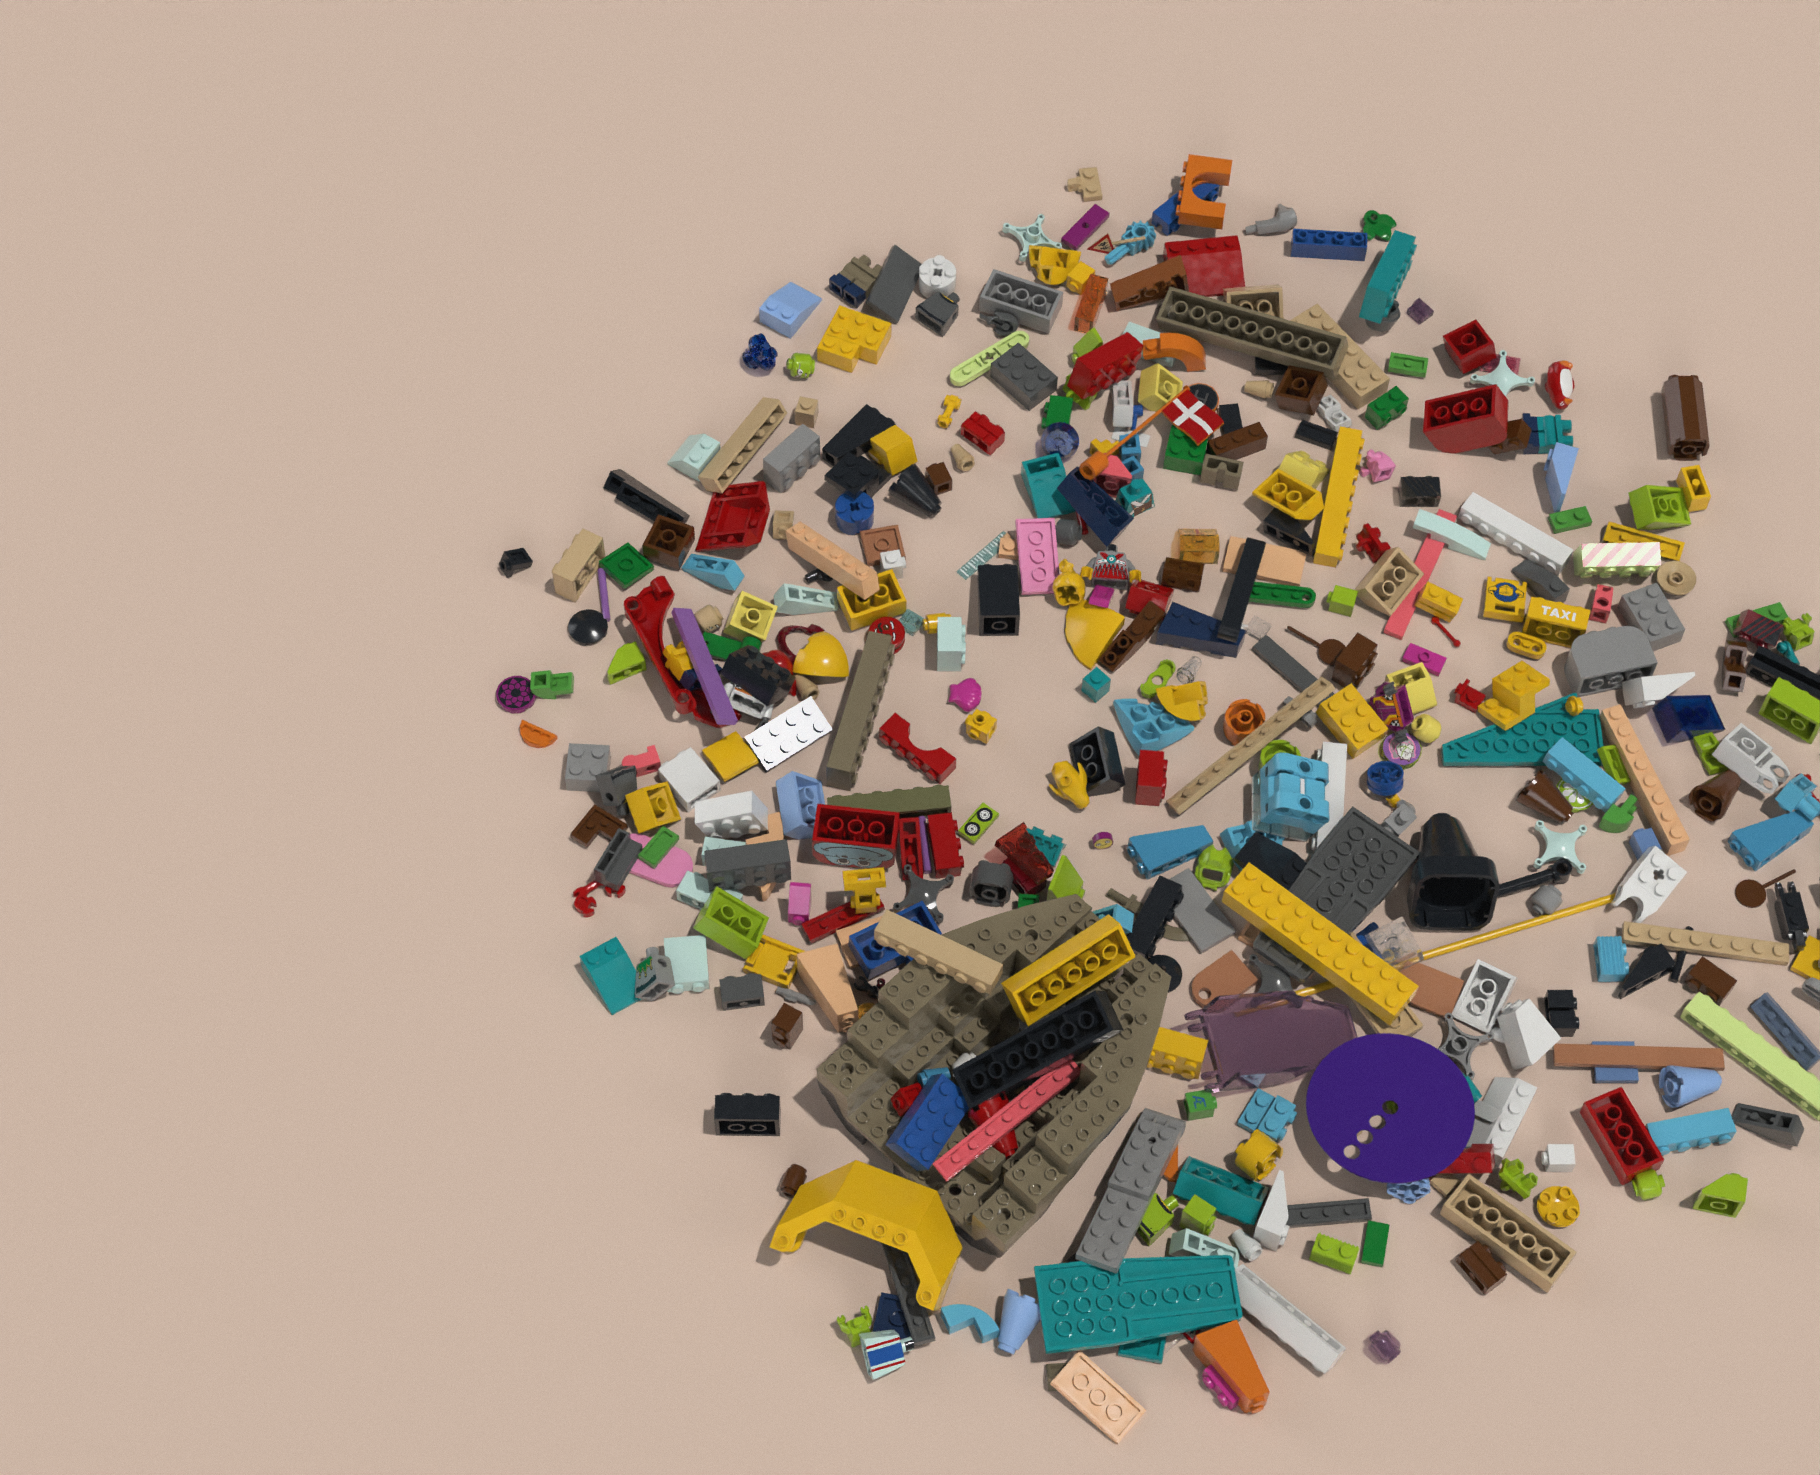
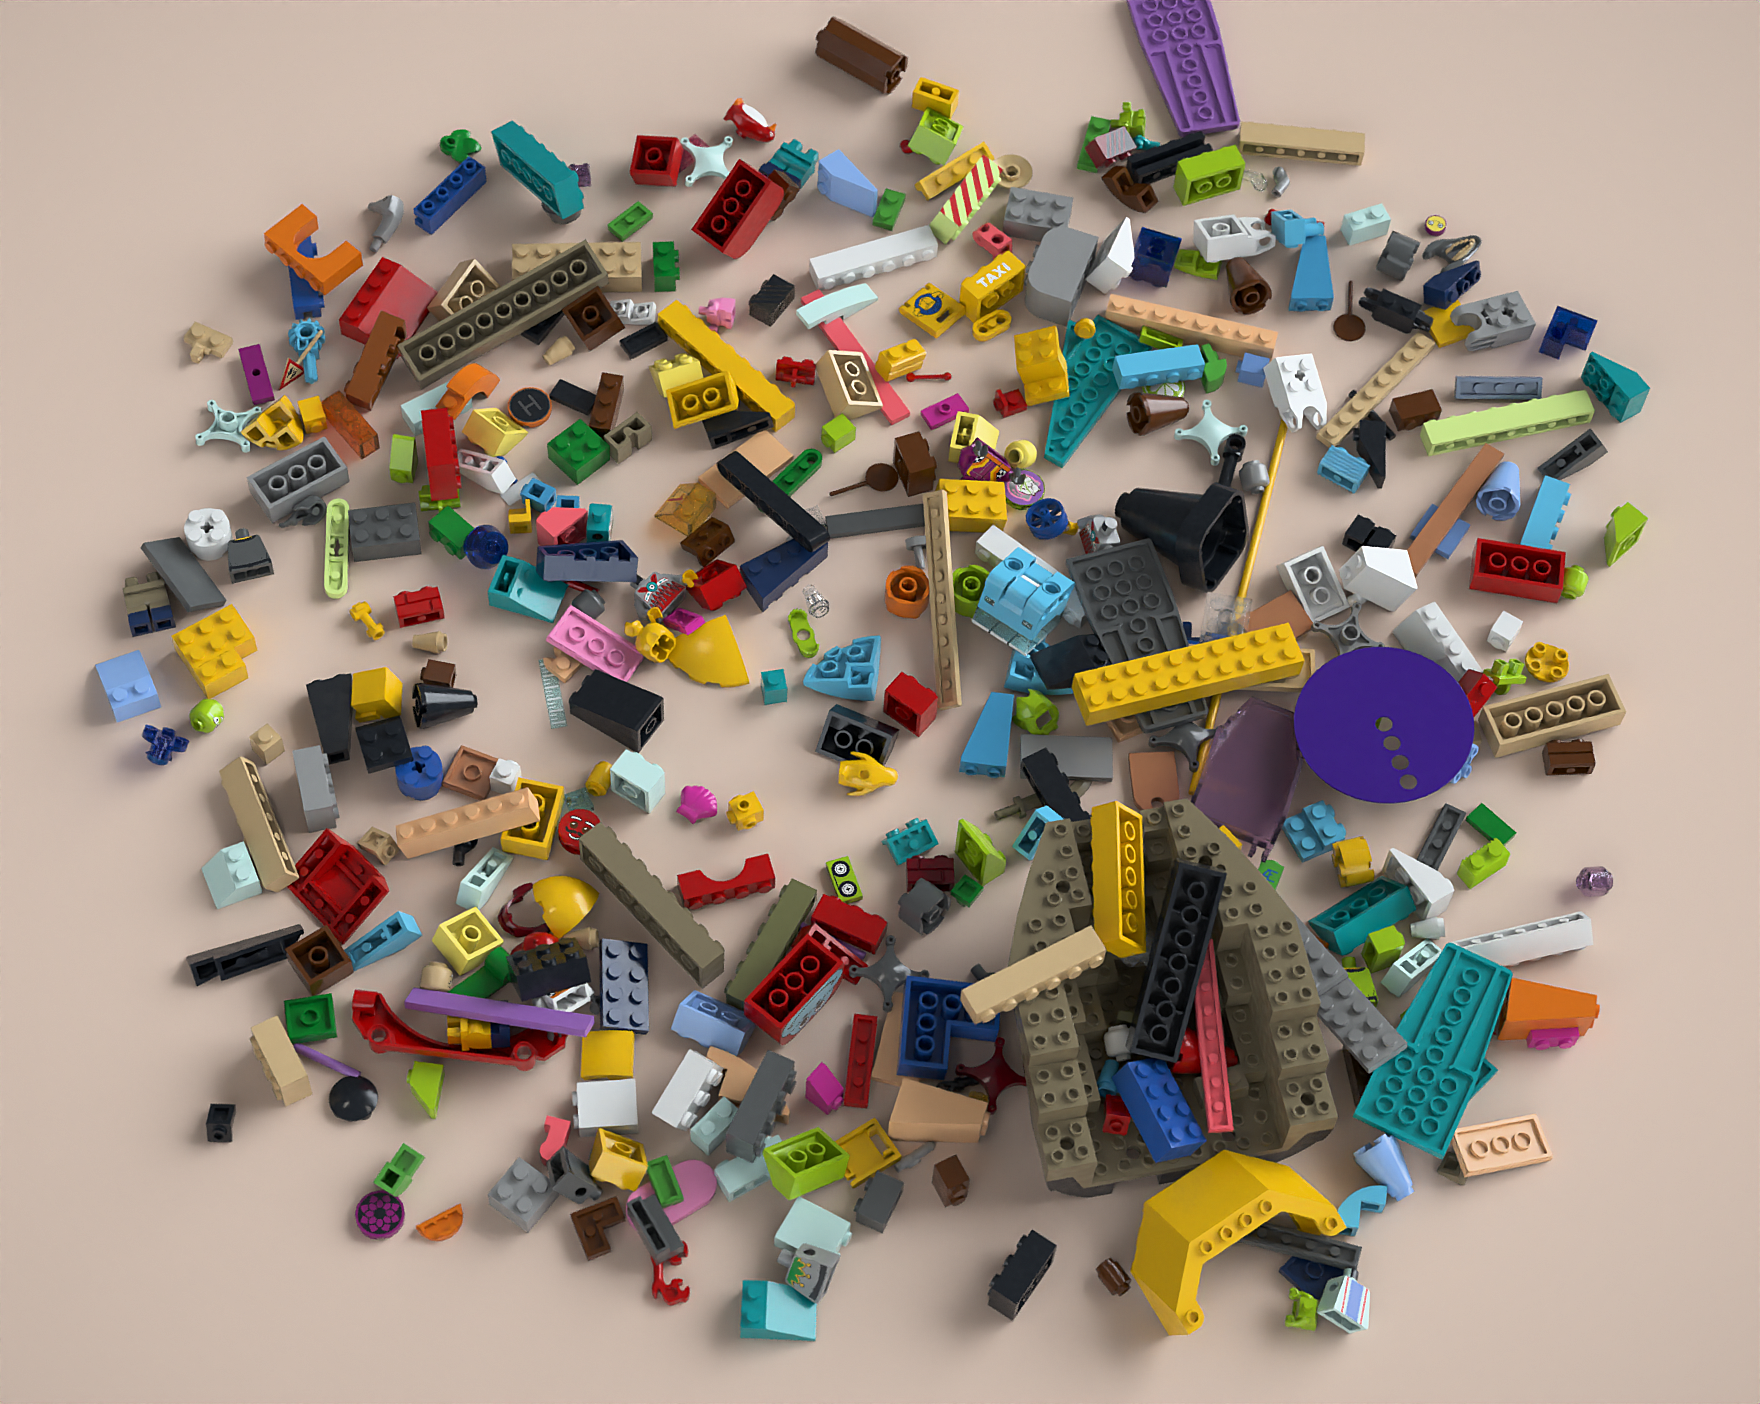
camera: 60 degrees left, 0 degrees up
(865, 897) = (866, 1023): yellow tile -> none
(1024, 853) = (914, 858): clear red wing -> none
(1102, 840) = (941, 786): tile -> none
(1132, 638) = (746, 623): reddish brown slope -> none
(1182, 411) = (549, 424): flag -> none
(1185, 700) = (847, 624): yellow brick -> none
(1541, 581) = (939, 271): dark grey slope -> none

